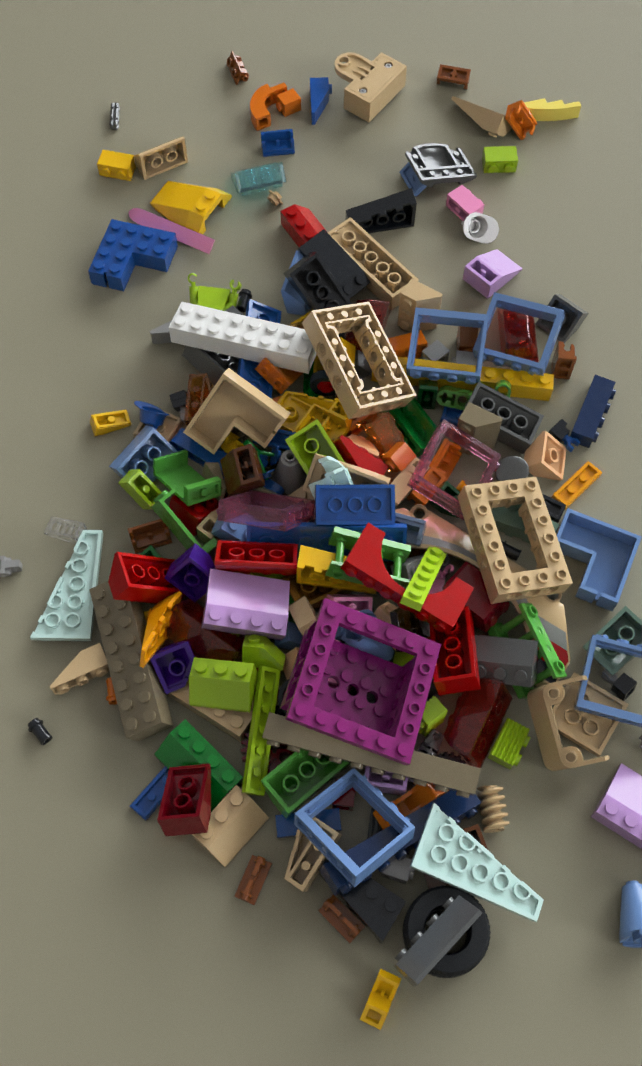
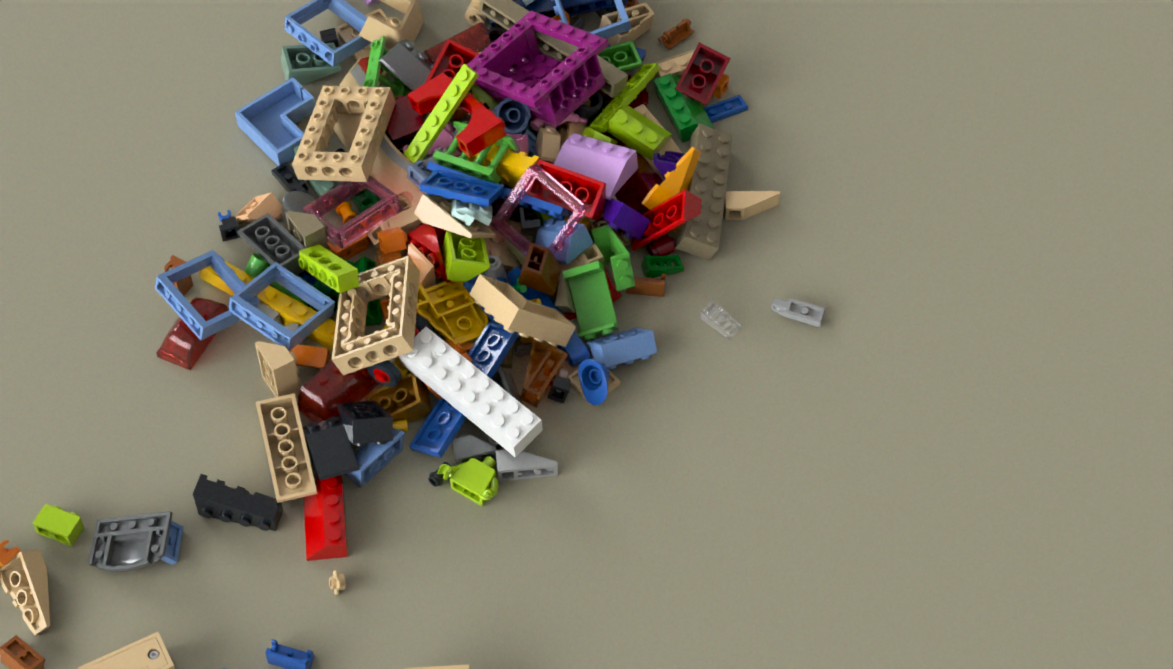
camera: 155 degrees left, 10 degrees down
(38, 729) = (801, 179): black pin -> none
(70, 606) = (736, 258): light aqua wing -> none
(109, 422) = (638, 404): yellow slope -> none
(111, 698) = (732, 177): orange pin -> none
(128, 246) = (535, 584): blue piece -> none
(140, 488) = (637, 312): lime brick -> none
(183, 234) = (475, 593): bright pink piece -> none
(188, 204) = (435, 617): yellow wedge -> none
(259, 178) = (339, 619): clear light blue slope -> none
(420, 391) = (329, 268): none -> lime brick
(463, 202) = (138, 485): bright pink brick -> none
(466, 338) = (246, 337): dark orange slope -> none
(480, 227) = (147, 453): white piece -> none
(490, 272) = (169, 397): lavender slope -> none
(509, 743) = (441, 33): lime brick -> none
(572, 320) = (139, 325): dark grey slope -> none
(577, 484) = (247, 187): light orange tile -> none
(592, 410) = (184, 233): dark blue brick -> none

